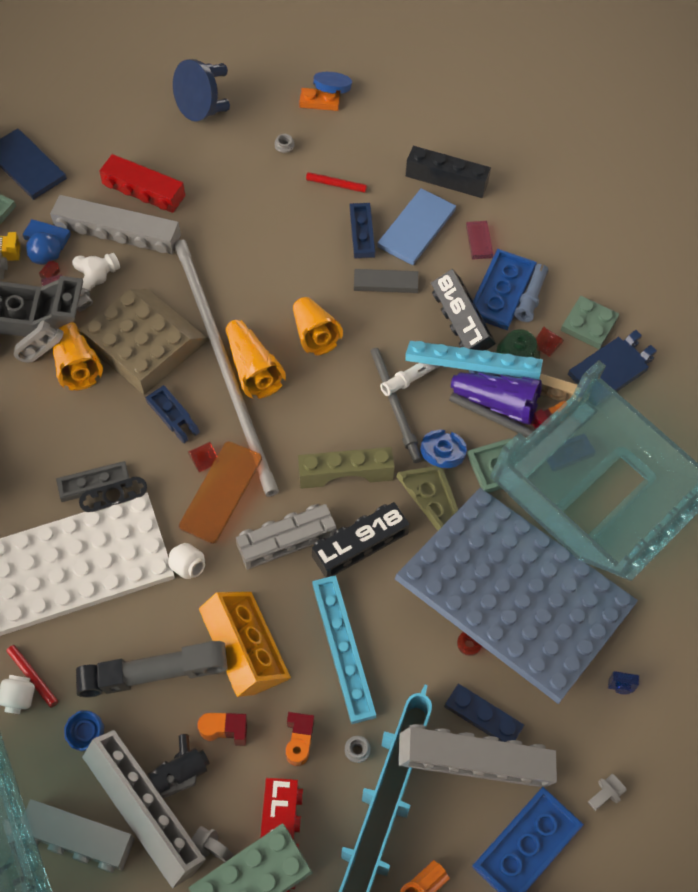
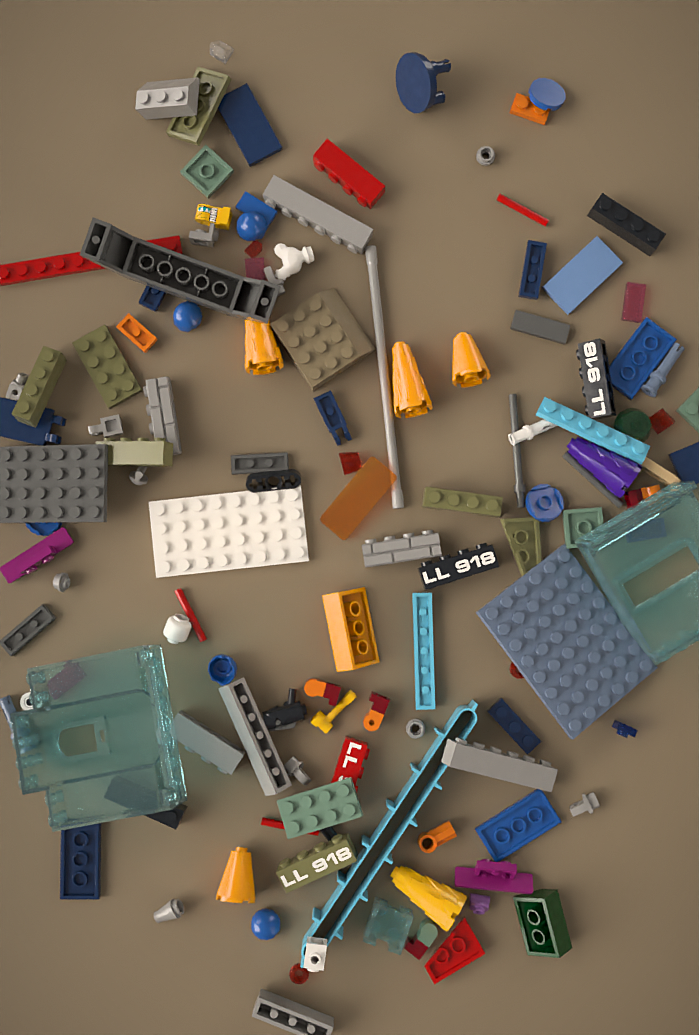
camera: 15 degrees right, 25 degrees up
(37, 342) = (234, 329): light grey plate -> none
(119, 675) = (282, 637): dark grey piece -> none
(186, 561) = (320, 552): white head -> none
(233, 768) = (324, 721): none -> yellow brick

